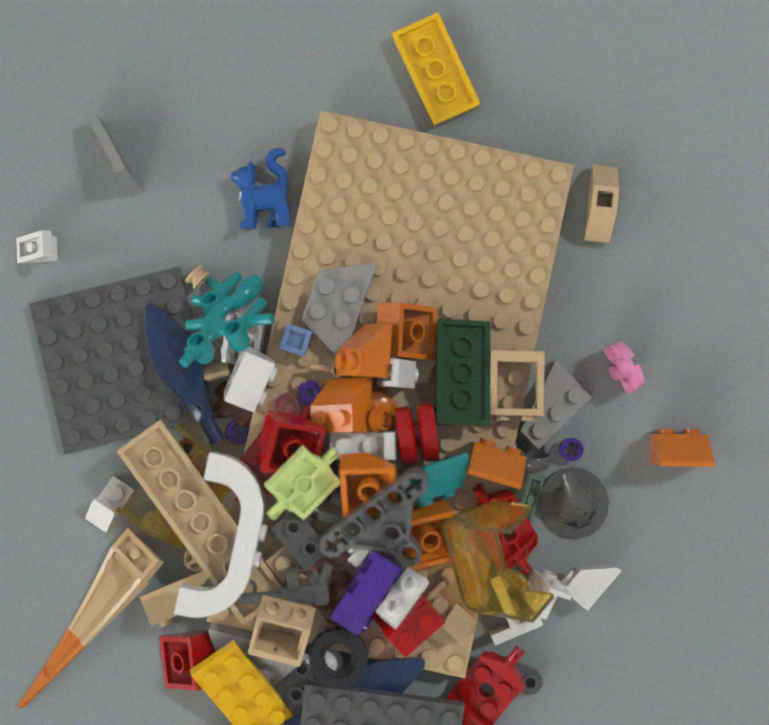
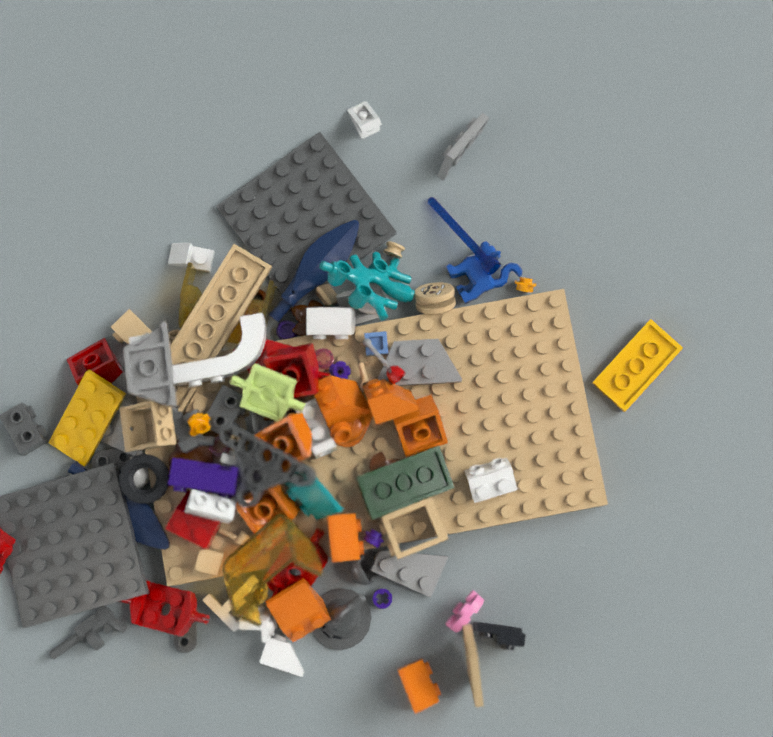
camera: 65 degrees right, 5 degrees down
(118, 582) = (132, 288): tan plate -> none
(219, 603) = (151, 368): none -> light grey wing
(258, 179) = (489, 263): none -> clear blue piece
(271, 255) = (435, 298): none -> tan head
(297, 151) = (525, 284): none -> light orange plate
(304, 573) = (199, 424): none -> light orange plate
(337, 334) = (394, 373): none -> hinge
(401, 375) = (382, 434): white slope -> none
(416, 434) = (340, 463): red wheel -> none
(497, 278) = (491, 479): none -> white bracket
(507, 432) = (373, 537): none -> dark purple plate
(530, 491) = (333, 578): sand green plate -> none
(550, 545) = (298, 610): none -> orange slope
(601, 203) = (588, 540): tan slope -> none
(666, 334) = (505, 636): none -> black plate
(687, 382) = (472, 665): none -> tan tile

